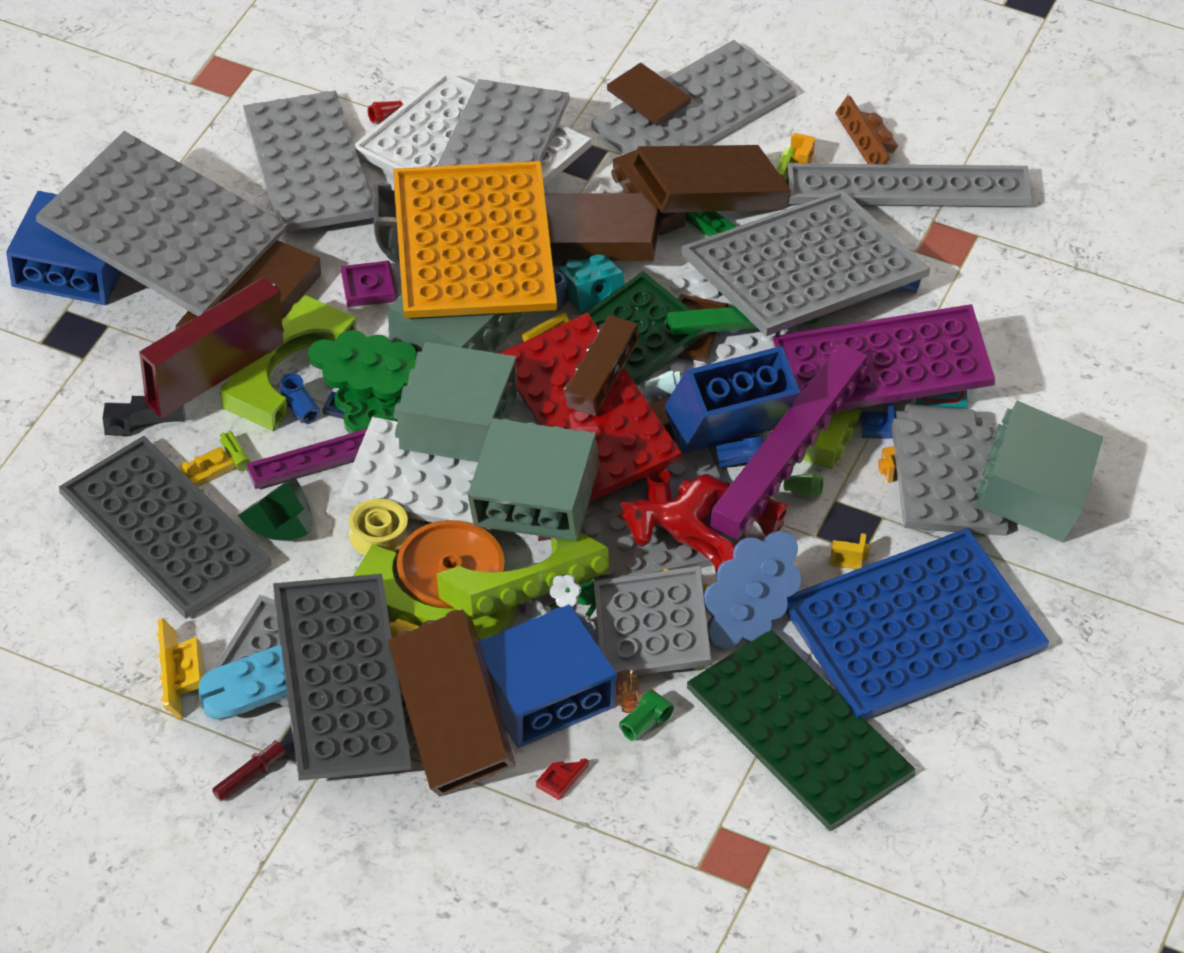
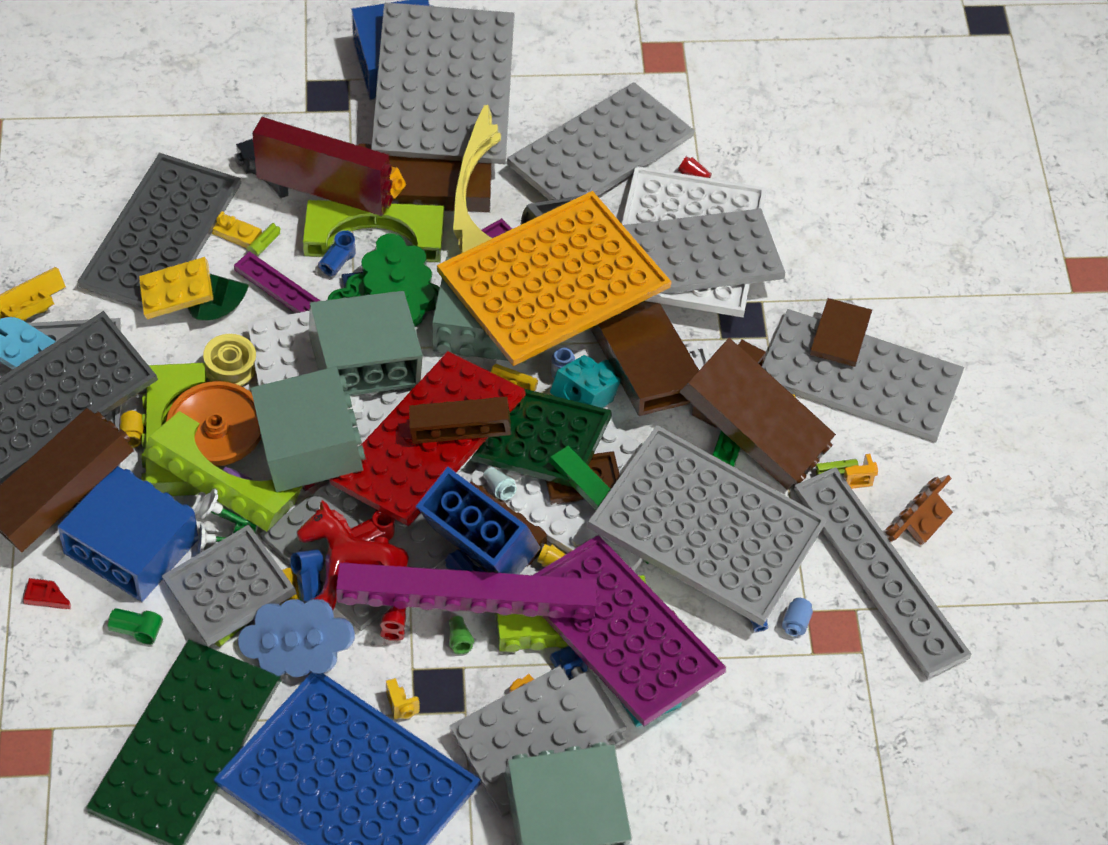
camera: 60 degrees right, 5 degrees up
(264, 529) = (176, 288): none -> yellow plate
(364, 290) = (481, 140): none -> light yellow slope
(627, 690) = (156, 599): clear orange cone -> none
(680, 557) = (307, 568): none -> blue piece
(927, 253) = (797, 617): none -> medium blue brick

